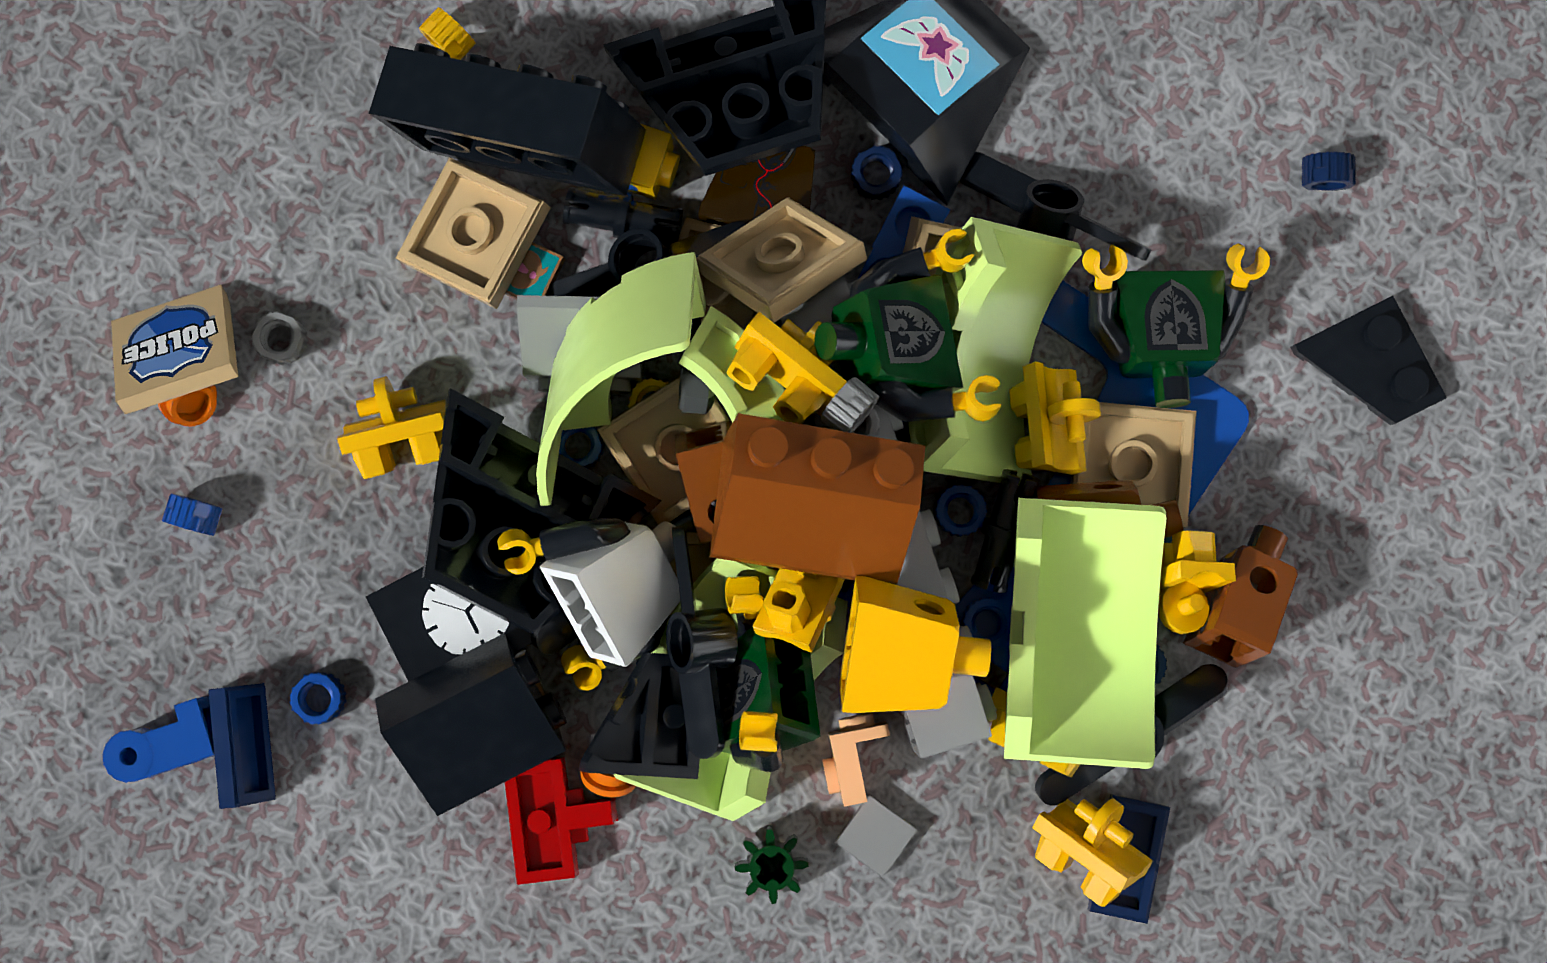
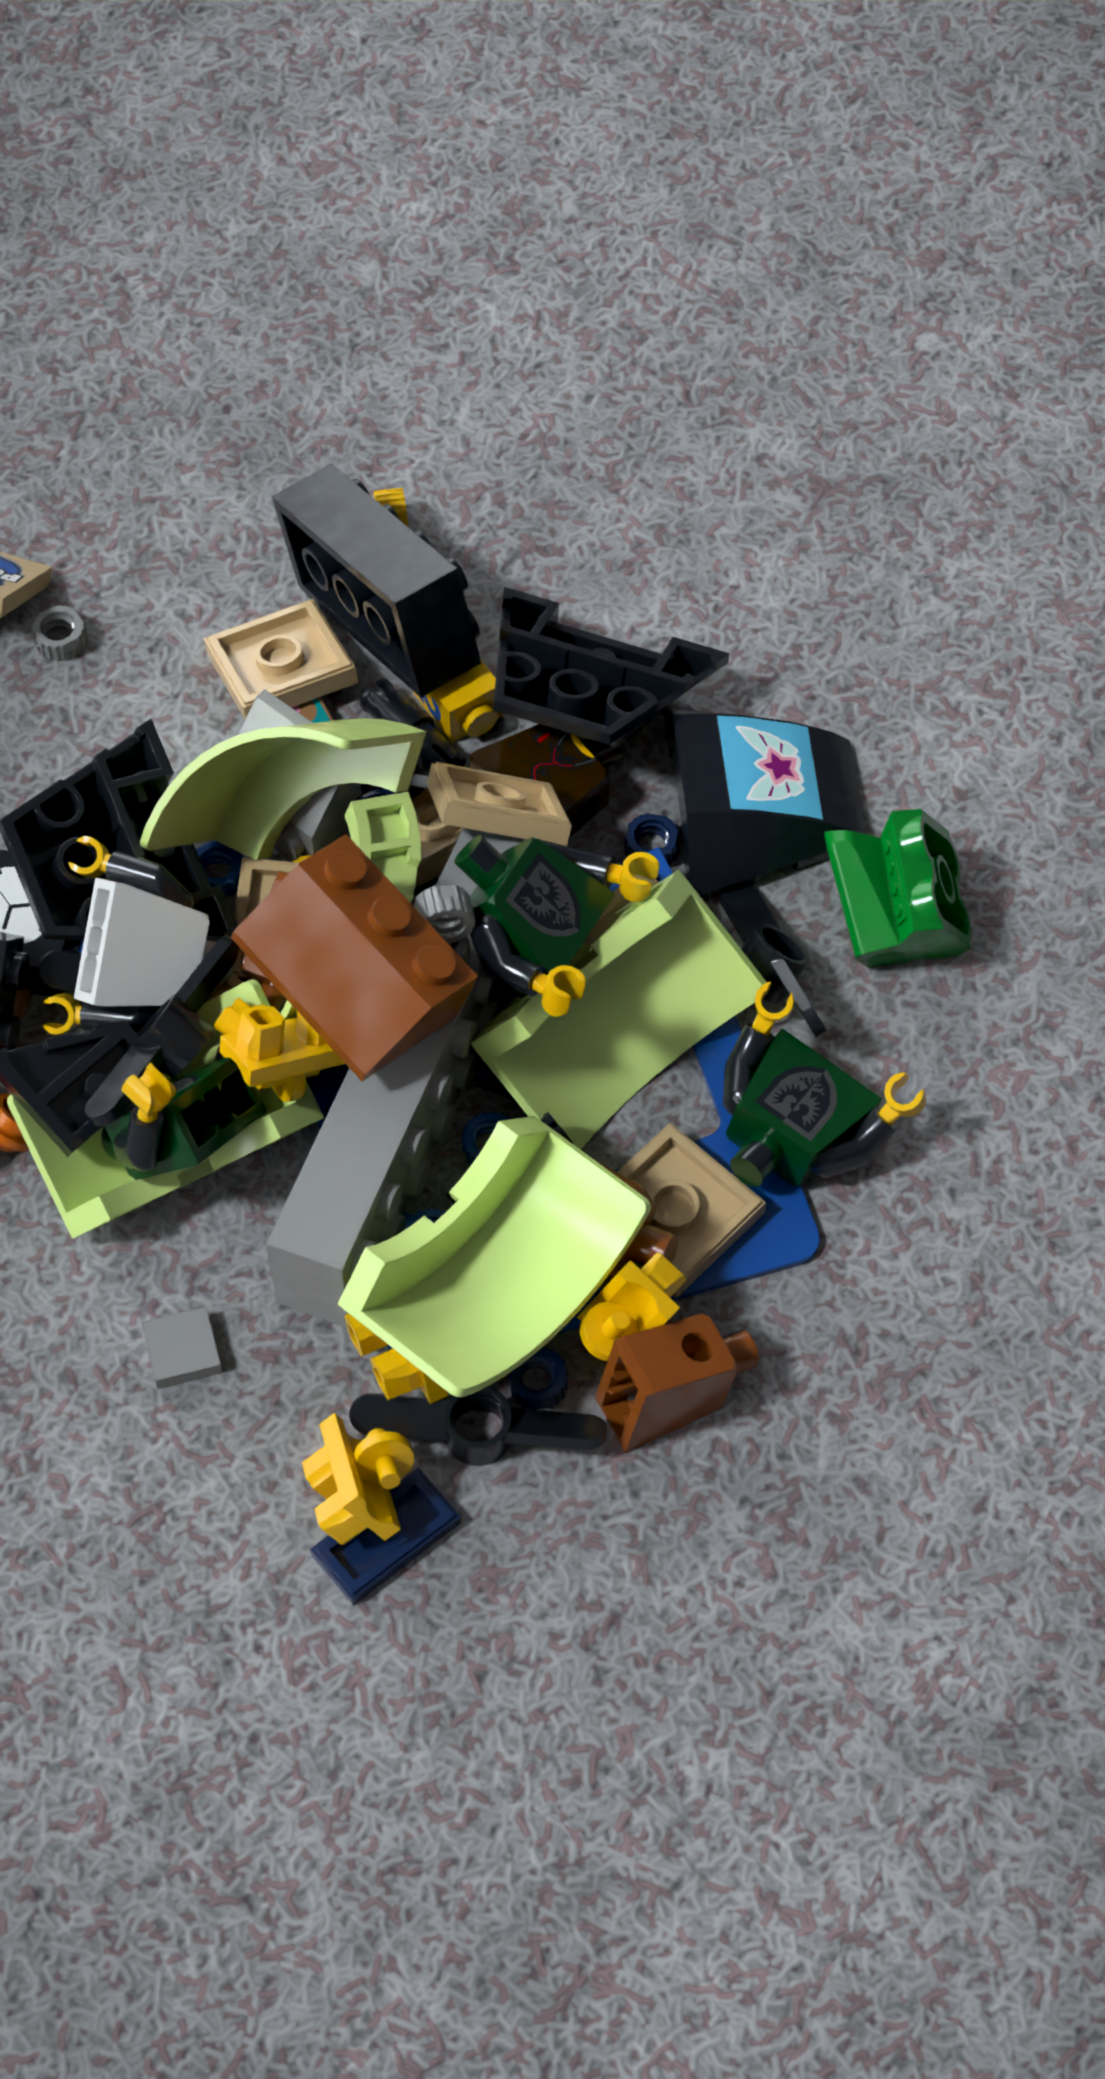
camera: 40 degrees right, 25 degrees down
(370, 438) = (58, 745): yellow hips -> none
(770, 848) = (72, 1312): dark green gear -> none
(791, 360) = (424, 845): yellow hips -> none
(843, 769) = (205, 1264): light nougat bracket -> none
(904, 650) = (323, 1120): yellow torso -> none
(1055, 419) = (629, 1115): yellow hips -> none
(1106, 86) = (900, 890): none -> green piece
(1329, 171) = (1052, 1102): dark blue axle -> none
(1376, 362) = (970, 1289): black wing -> none

